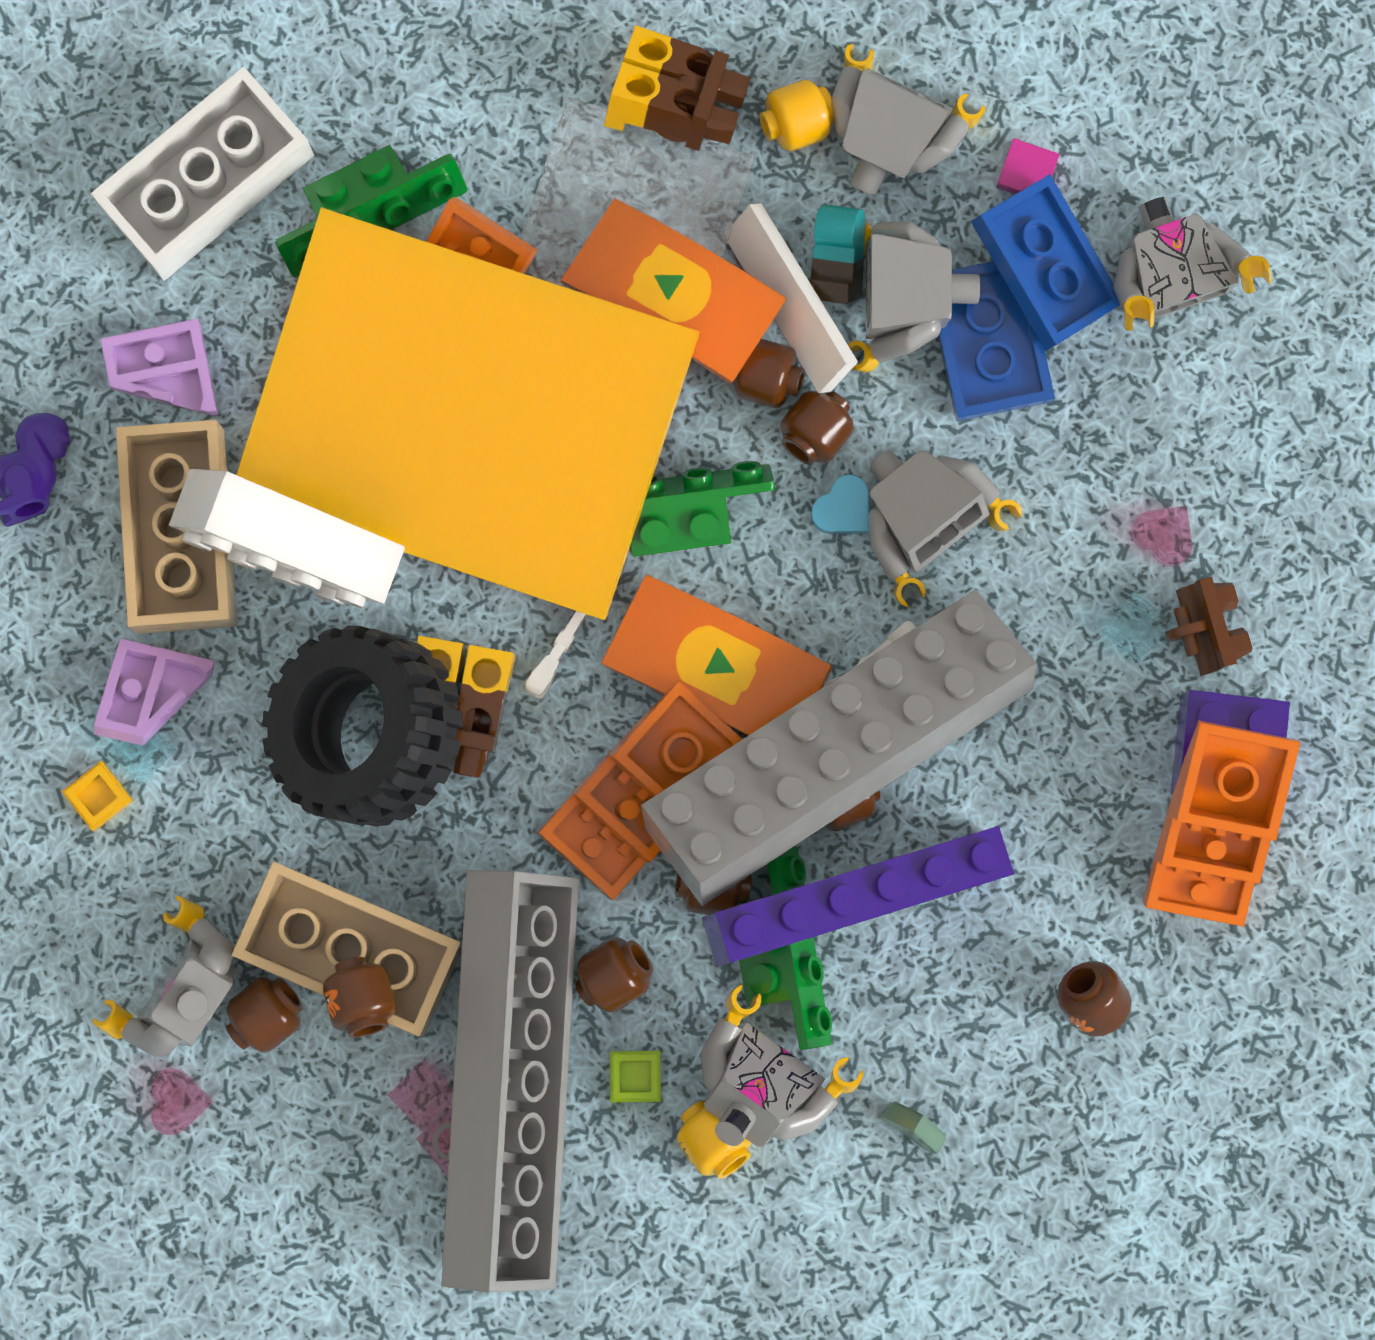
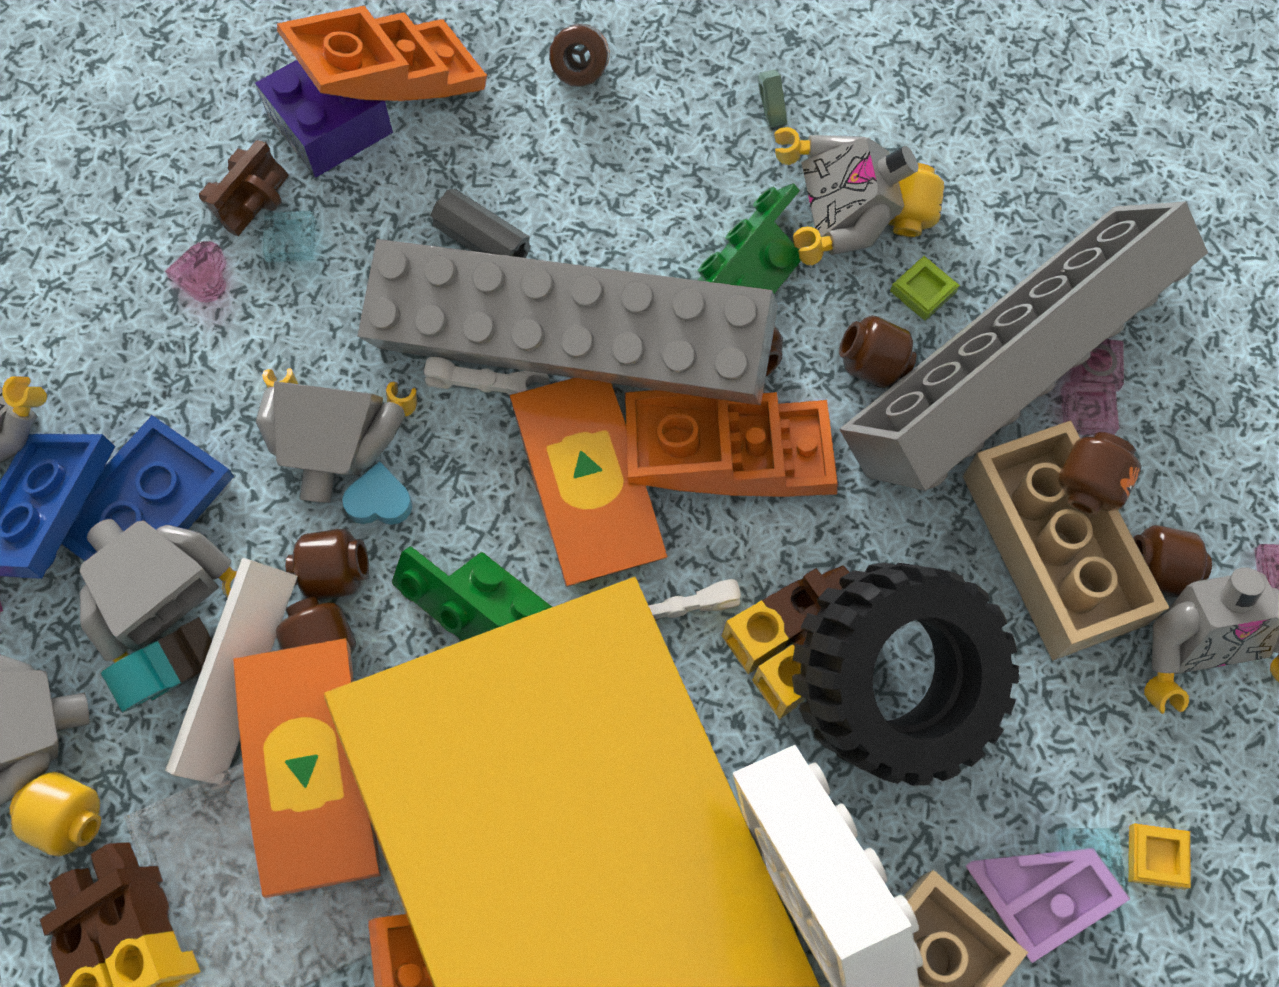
camera: 135 degrees left, 15 degrees down
(857, 896) = (663, 227): dark purple brick -> none
(1001, 774) = (477, 226): none -> dark grey axle

